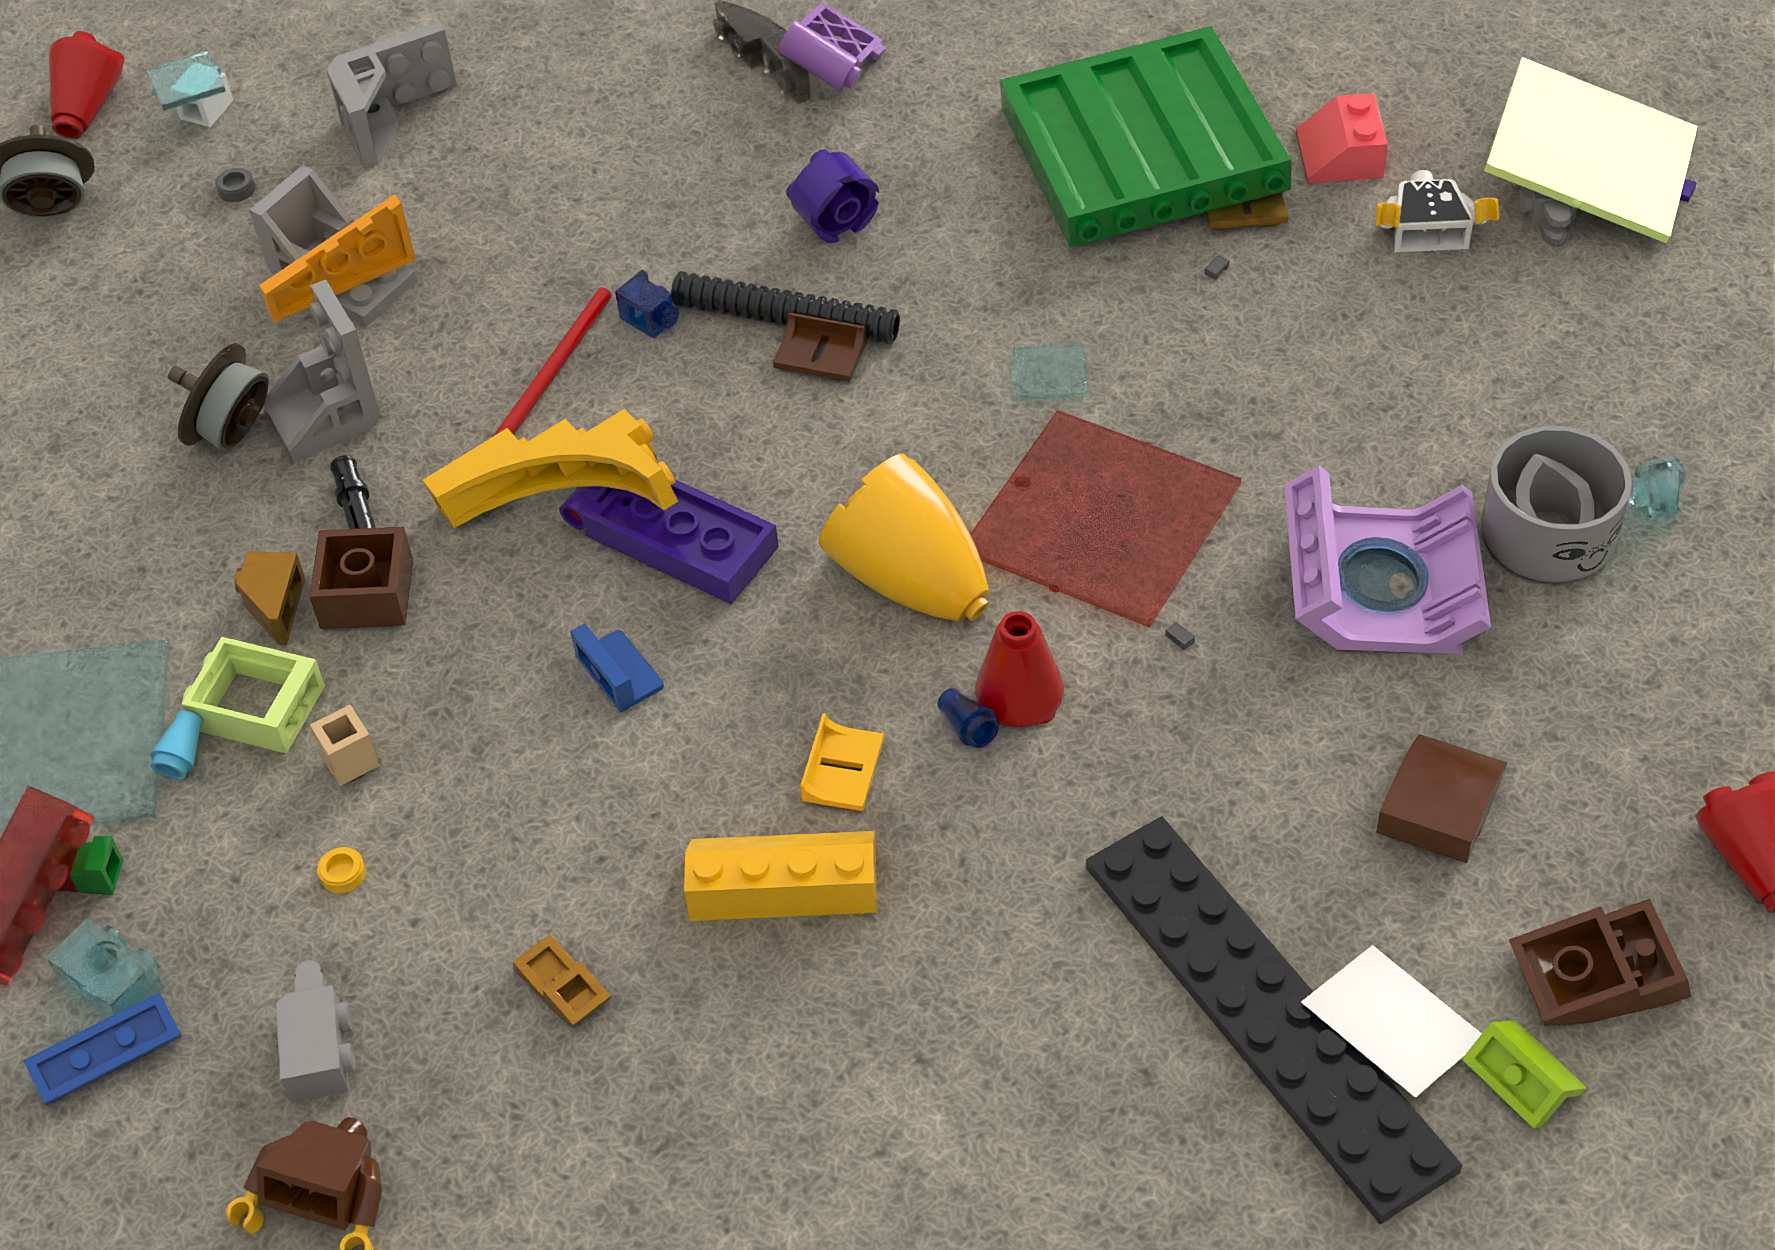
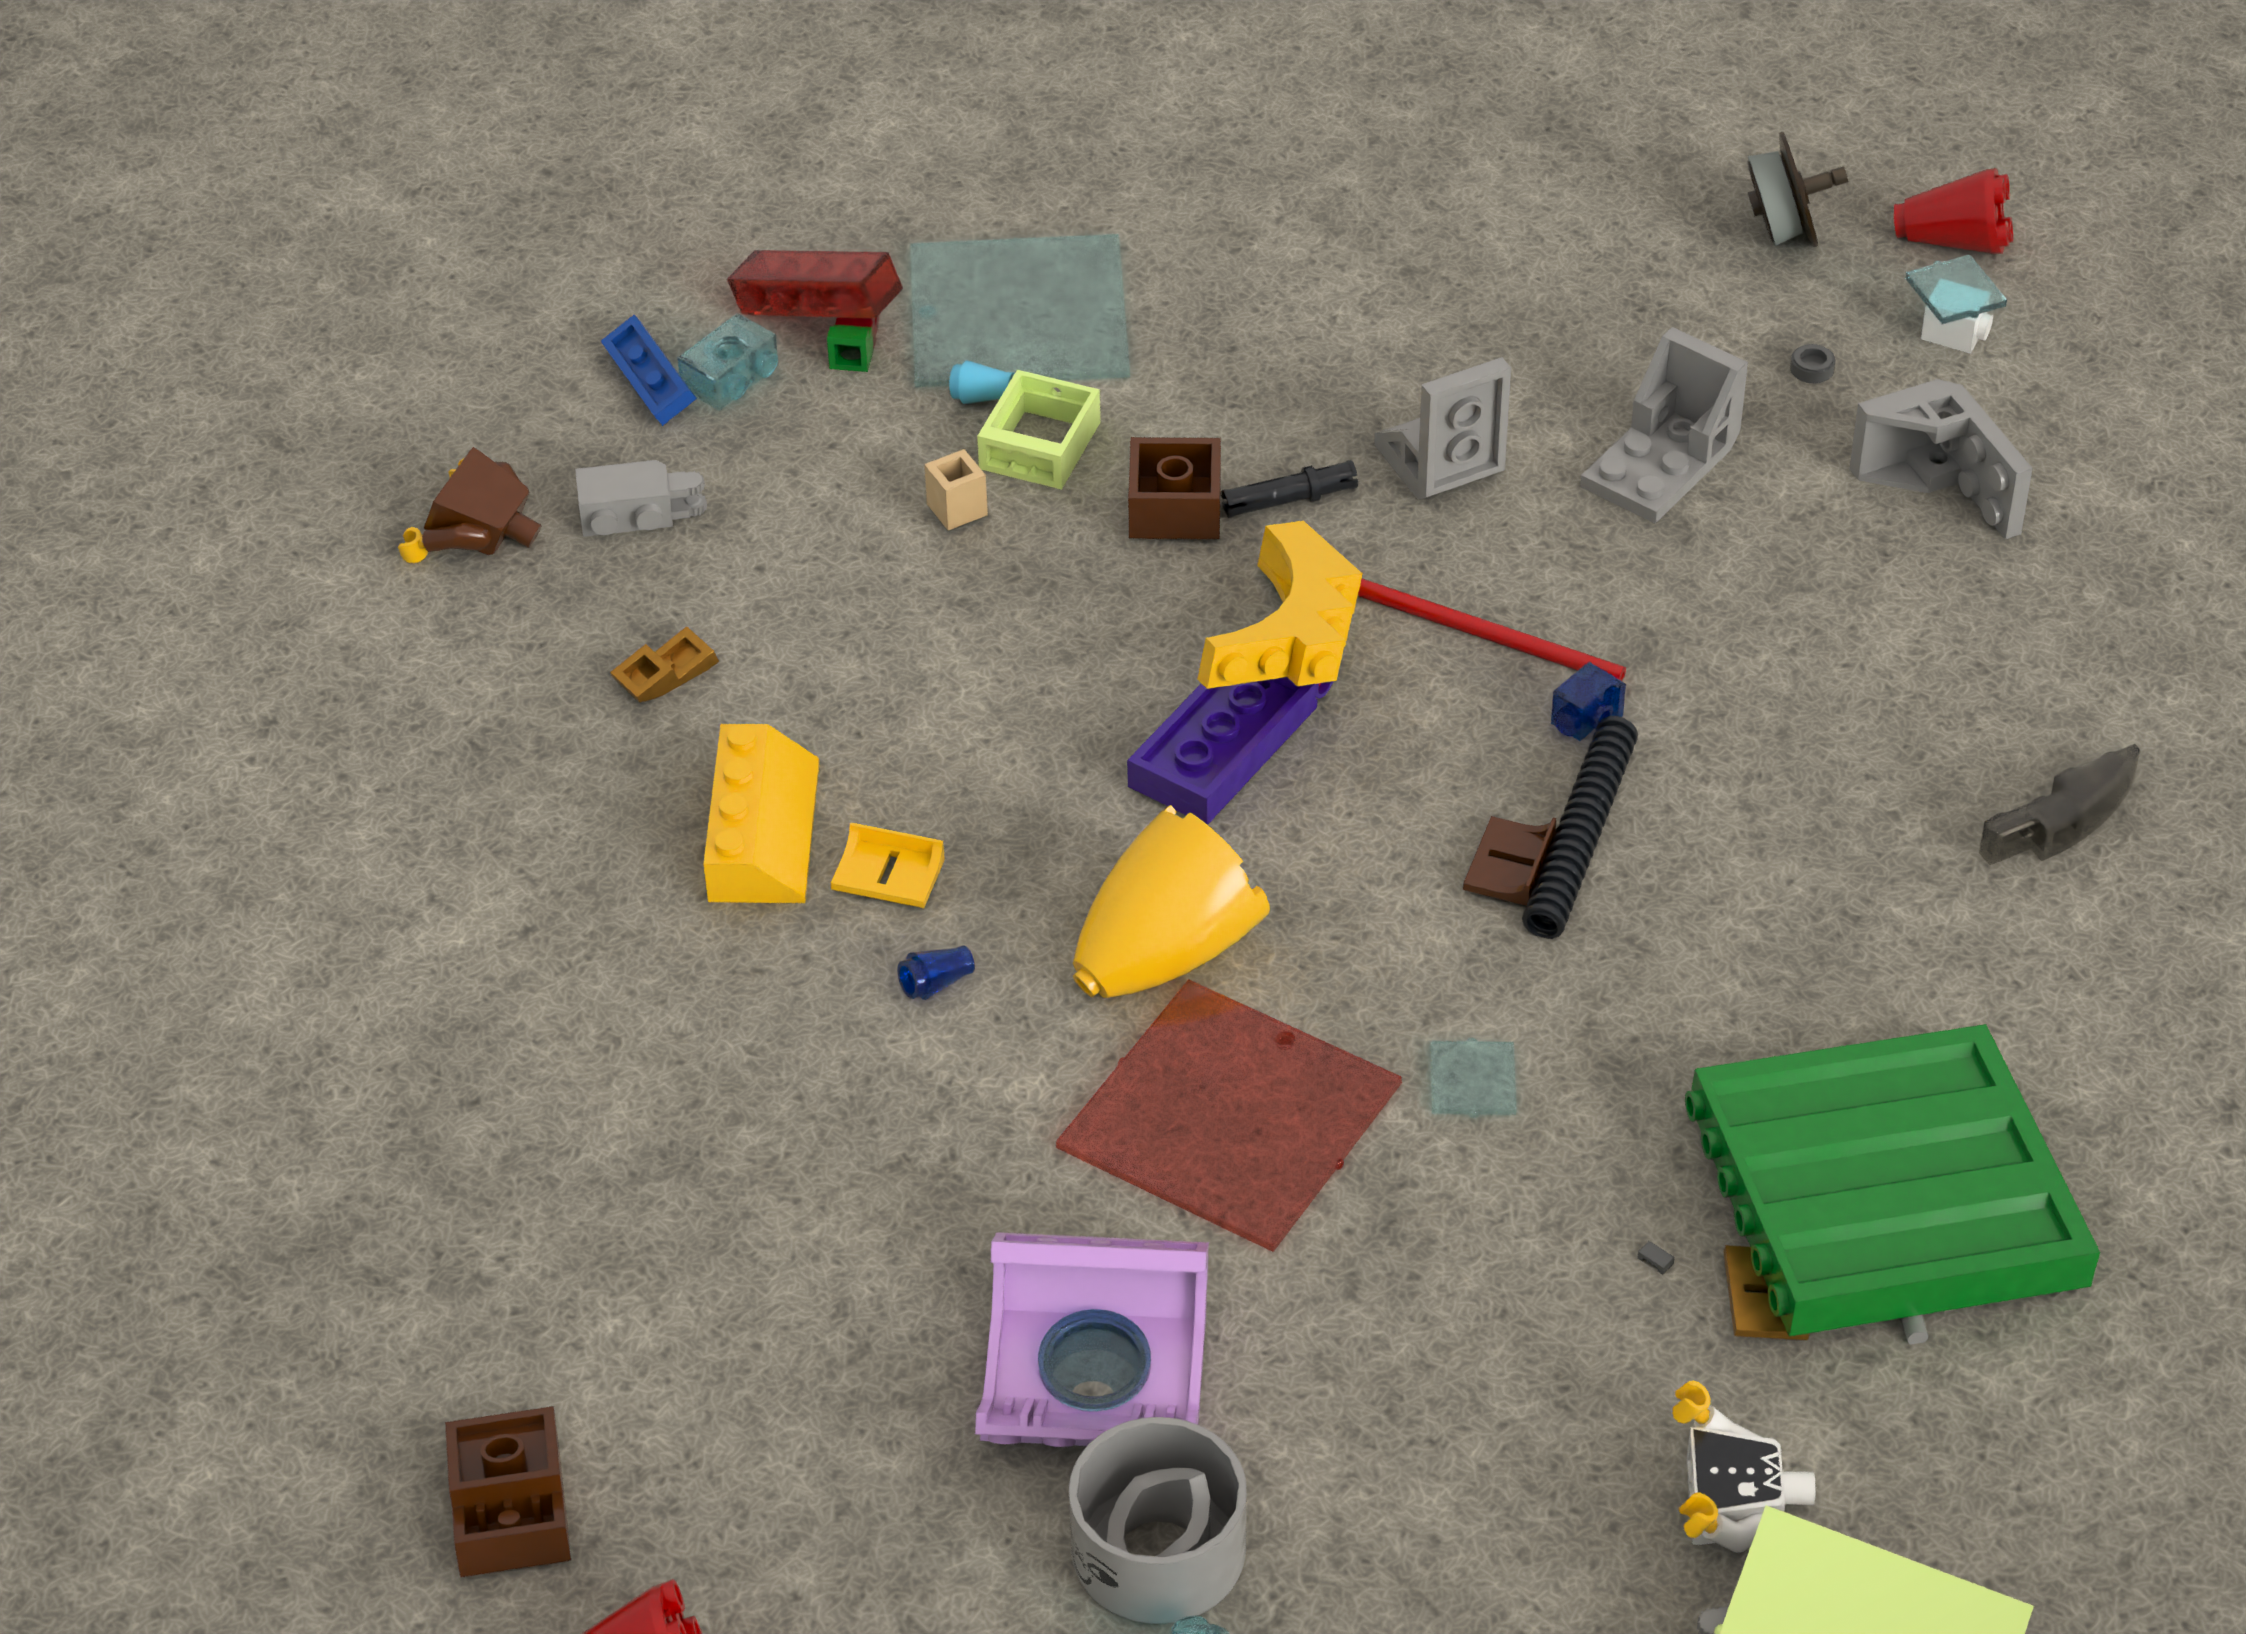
camera: 90 degrees right, 5 degrees down
(221, 400) = (1418, 350): piece -> none
(271, 590) = (1168, 418): pearl gold slope -> none
(341, 870) = (825, 512): yellow tile -> none
(349, 258) = (1632, 430): light orange wing -> none
(616, 666) = (1046, 690): blue panel -> none
(826, 55) = (2016, 847): medium lavender piece -> none
(833, 195) = (1756, 855): dark purple brick -> none
(1020, 674) = (971, 1001): red cone -> none
(1179, 635) = (1036, 1170): dark grey piece -> none
(1255, 1002) = (516, 1201): black plate -> none
(1344, 140) = (1893, 1416): coral slope -> none
(1393, 1020) = (481, 1299): white sticker -> none
(1440, 798) = (759, 1373): reddish brown slope -> none
(1522, 1071) = (399, 1408): lime panel -> none

